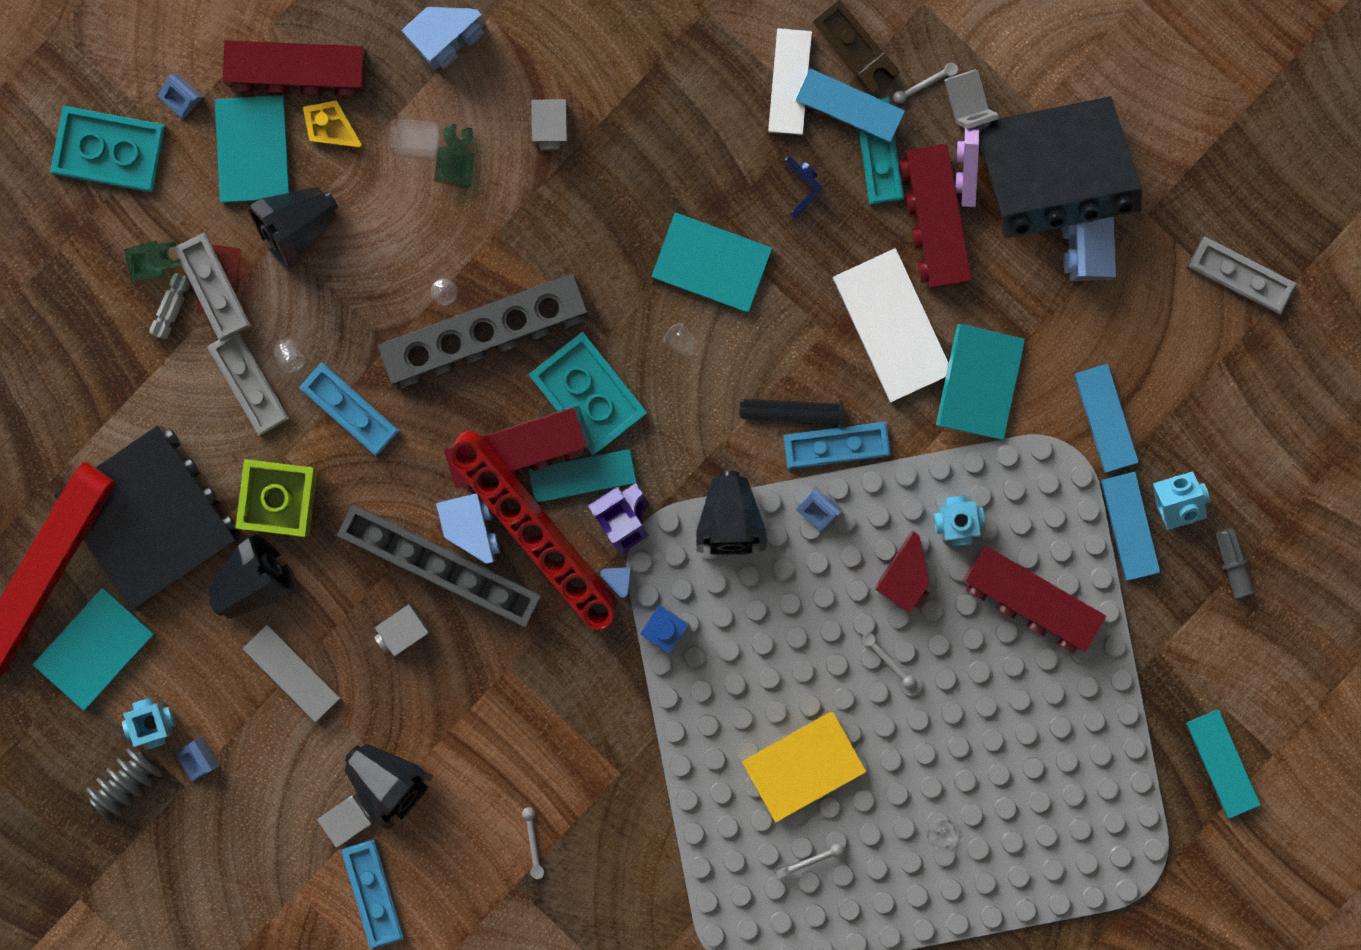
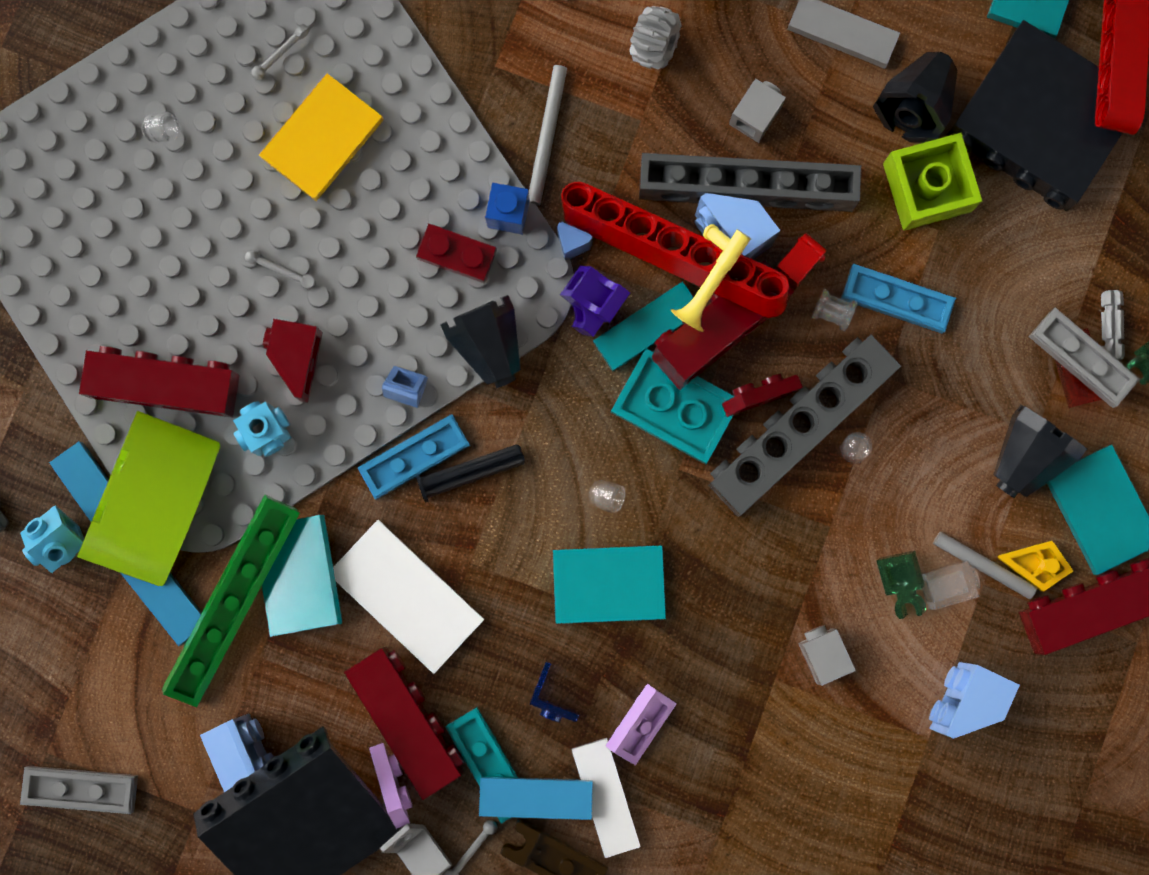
camera: 165 degrees right, 5 degrees down
(248, 383) = (1004, 283): light grey tile -> none
(286, 351) = (982, 328): clear piece -> none
(376, 144) = (985, 565): none -> light grey bar
(411, 421) = (834, 309): none -> clear bush
(425, 474) = (801, 260): none -> red piece
(466, 732) = (655, 37): none -> light grey gear
(487, 500) = (732, 249): none -> light yellow piece
(521, 371) = (772, 389): none -> dark red plate
(599, 688) = (547, 134): none -> light grey bar
(725, 610) = (456, 253): none -> dark red plate
(734, 130) = (641, 724): none -> lavender plate
(1045, 382) = (230, 601): none -> green plate
(1078, 498) = (150, 499): none -> lime panel

